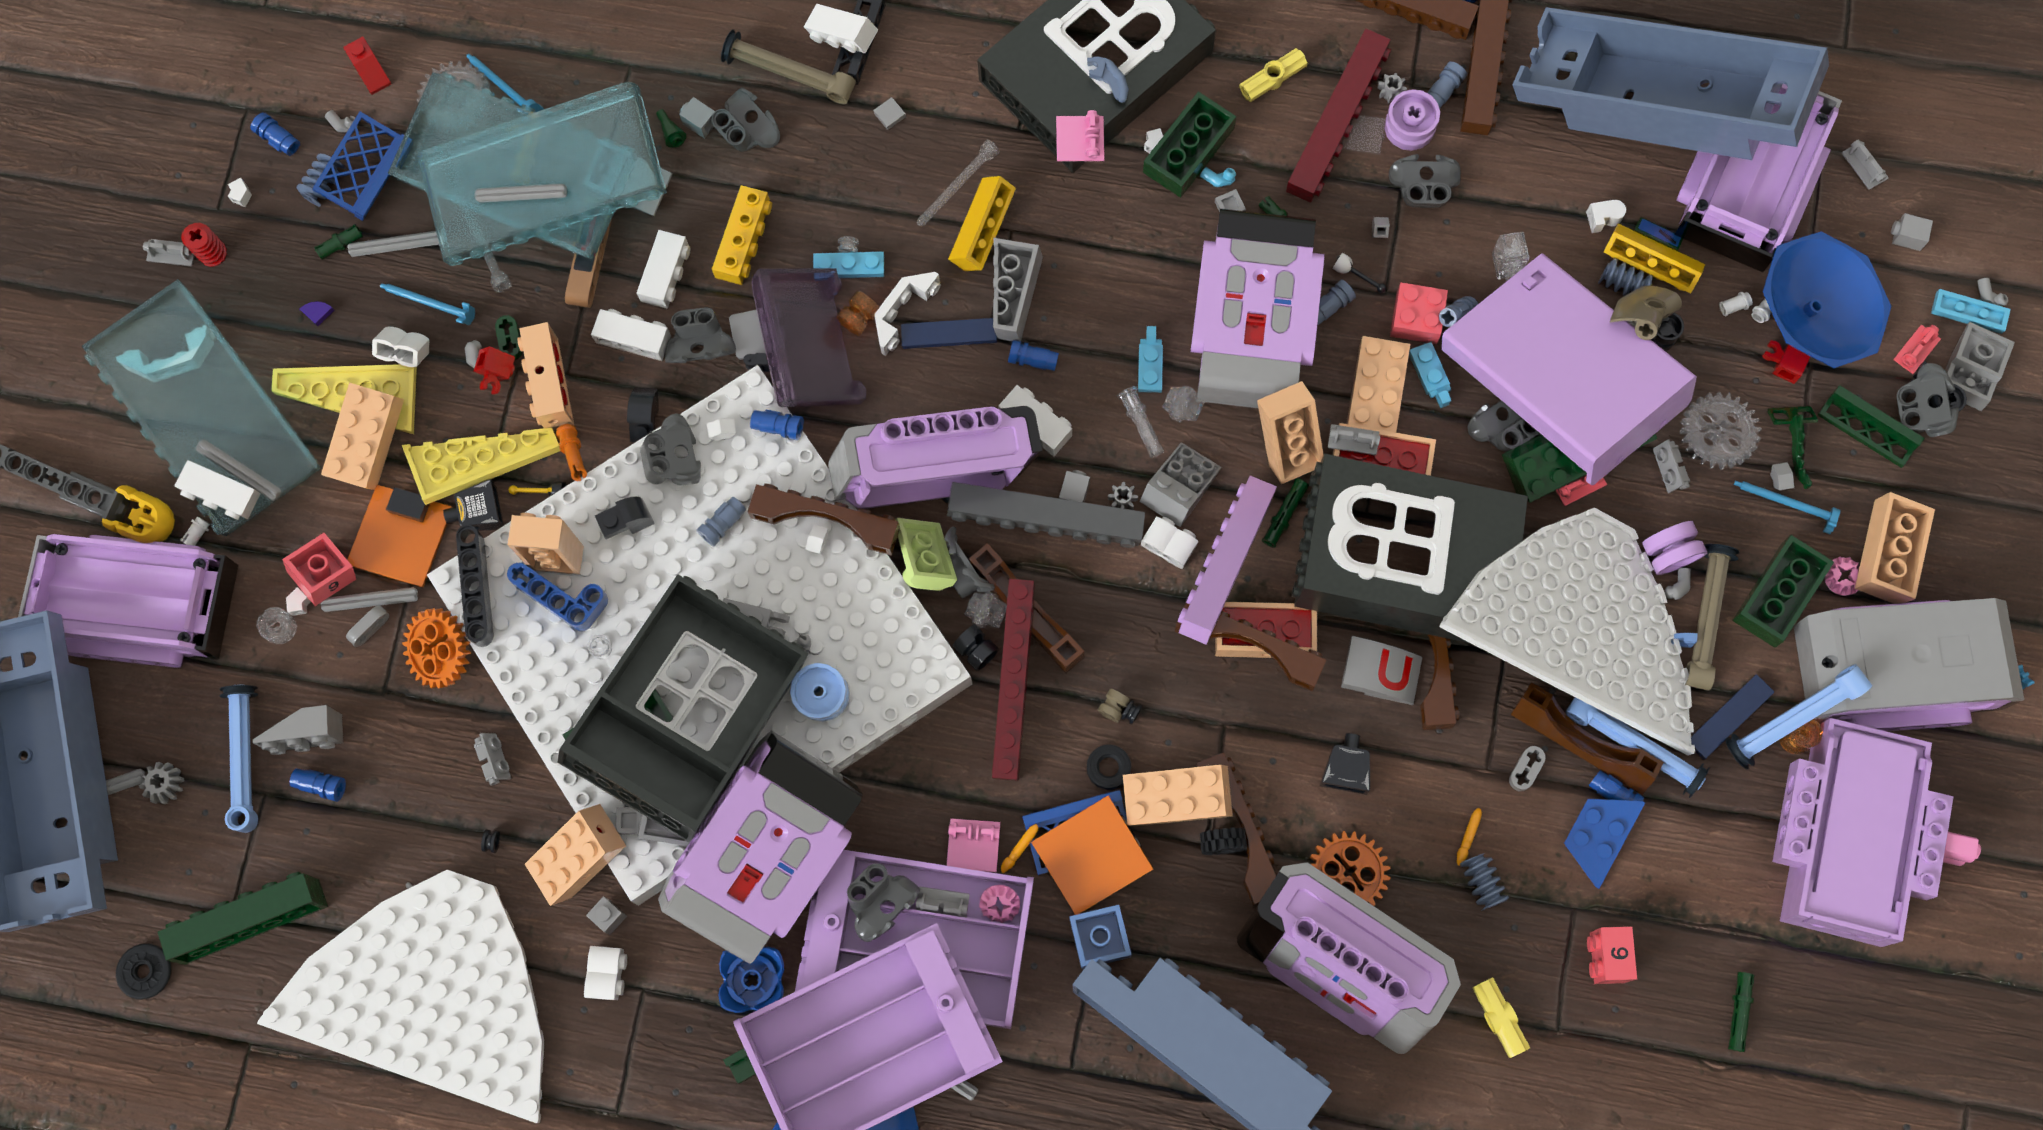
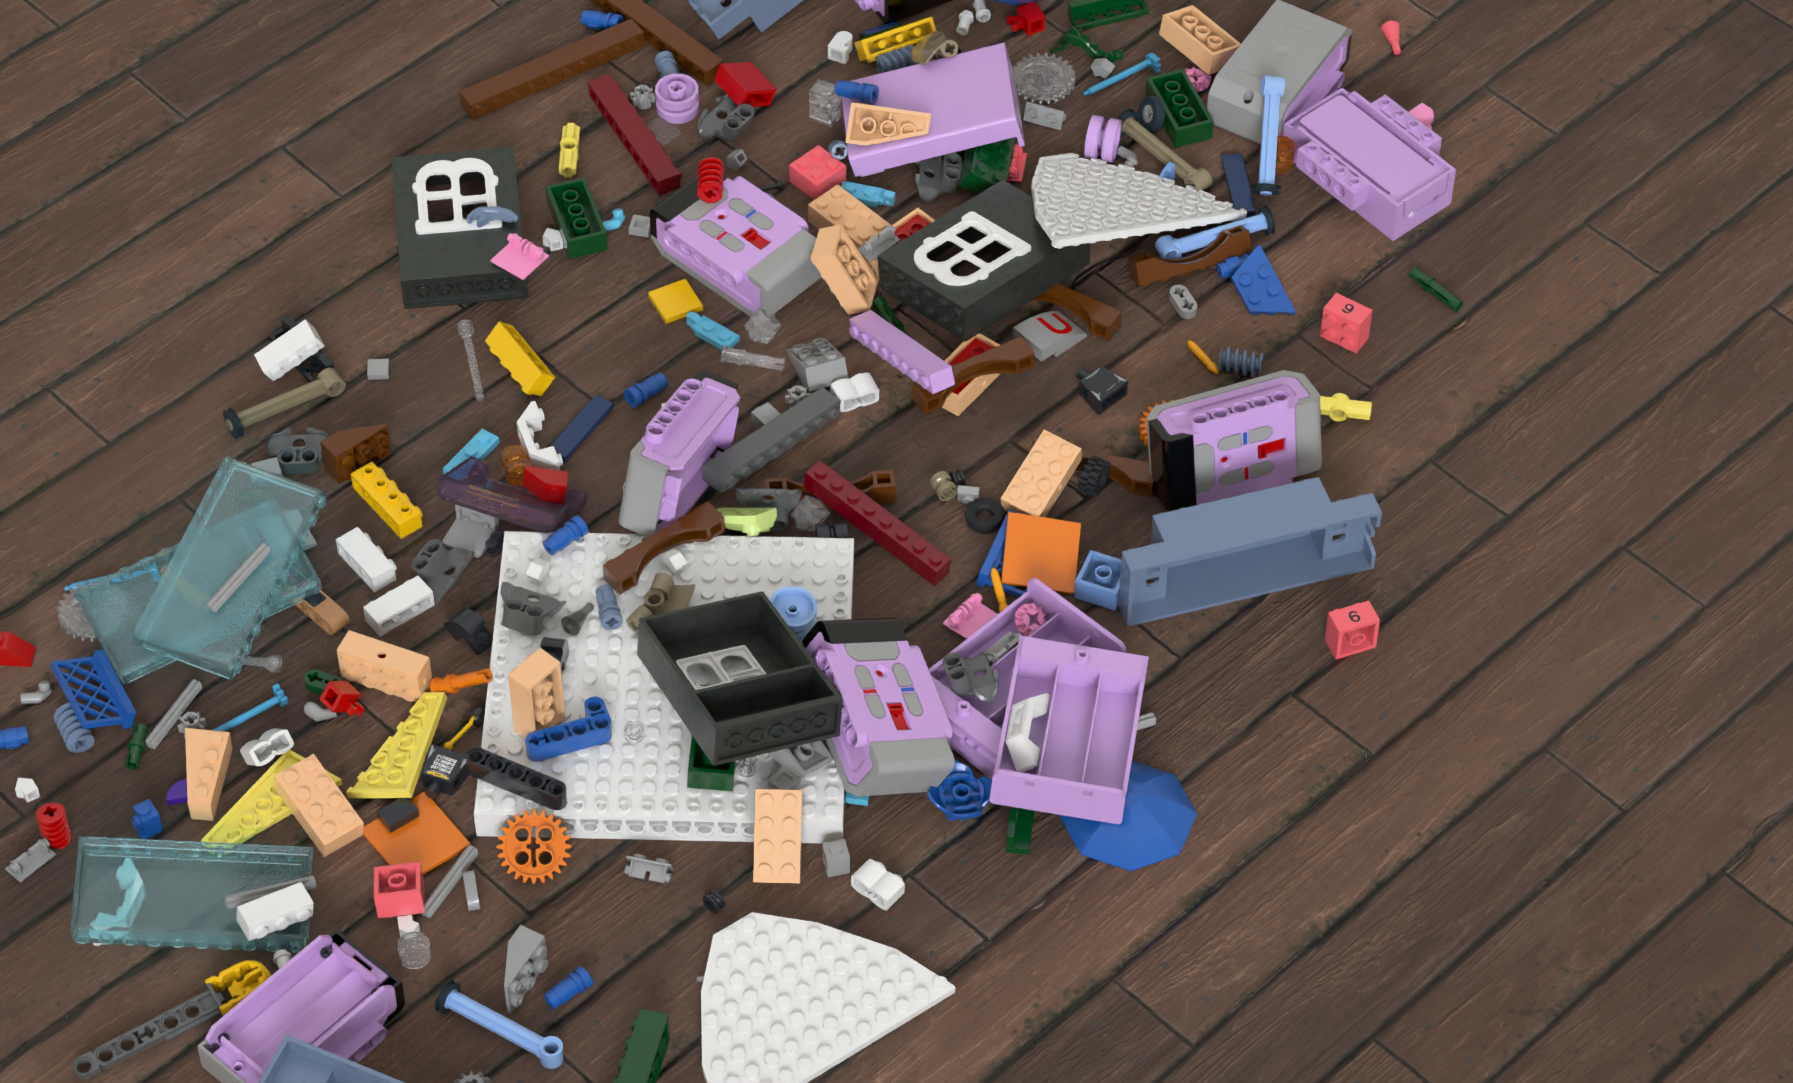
camera: 60 degrees left, 25 degrees down
(262, 306) = (146, 819): none -> blue brick
(344, 316) = (206, 766): none -> light nougat wedge
(387, 262) = (191, 720): none -> light grey gear
(688, 504) = (573, 622): none -> clear smoke cone
(762, 167) = (353, 449): none -> reddish brown slope
(770, 572) = (661, 598): none -> dark tan panel
(830, 995) = (1022, 750): none -> white slope
(848, 244) = (456, 443): clear bush -> none
(854, 357) = (546, 483): none -> red slope
(1014, 283) = (583, 367): light grey wedge -> none
(1119, 736) = (967, 494): none -> light grey plate
(1163, 302) = (675, 301): none -> yellow tile
(1286, 235) = (710, 180): none -> red piece
(1477, 166) = (745, 84): none -> red brick
(1498, 332) = (881, 124): none -> light nougat wedge
(1529, 277) = (863, 92): none -> blue axle
(1751, 570) = (1151, 113): none -> black bush

